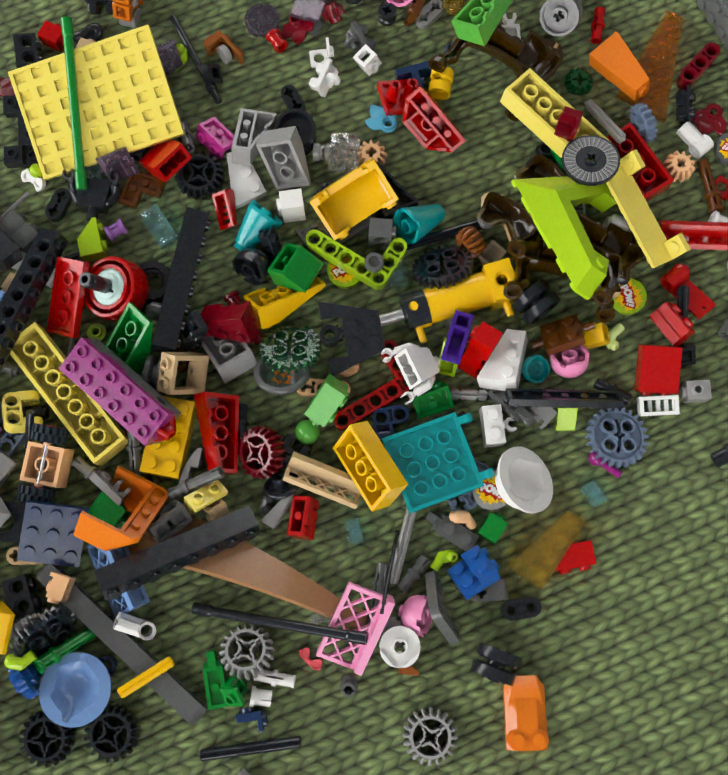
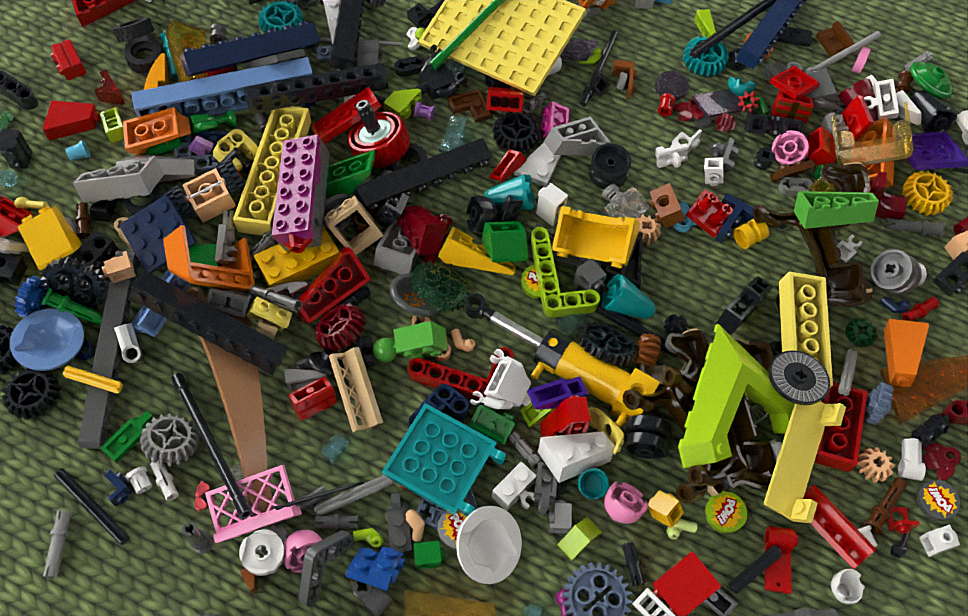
camera: 45 degrees right, 15 degrees down
(19, 663) = (37, 279): lime arm -> none
(102, 331) = (337, 151): lime plate -> none
(118, 161) = (474, 73): clear purple piece -> none
(233, 691) = (129, 454): green bracket -> none
(284, 157) = (581, 169): light grey slope -> none
(289, 103) = (635, 150): black beam -> none
(357, 117) = (667, 206): none -> dark orange brick
(361, 334) = (496, 325): black wing -> none
(370, 465) = (395, 411): yellow brick -> none
(374, 262) = (560, 289): dark grey tile -> none
(430, 123) = (711, 246): red wedge -> none
(467, 204) = (675, 324): none -> black gear
(495, 142) = (744, 305): none -> black brick
(517, 322) = (599, 422): none -> light yellow piece
(562, 334) = (640, 480): reddish brown plate -> none
(564, 398) = (588, 523): black plate -> none
(568, 123) = (811, 337): dark red panel -> none
(581, 39) = (895, 307): none -> dark blue arm
(672, 323) = (737, 565): red brick -> none

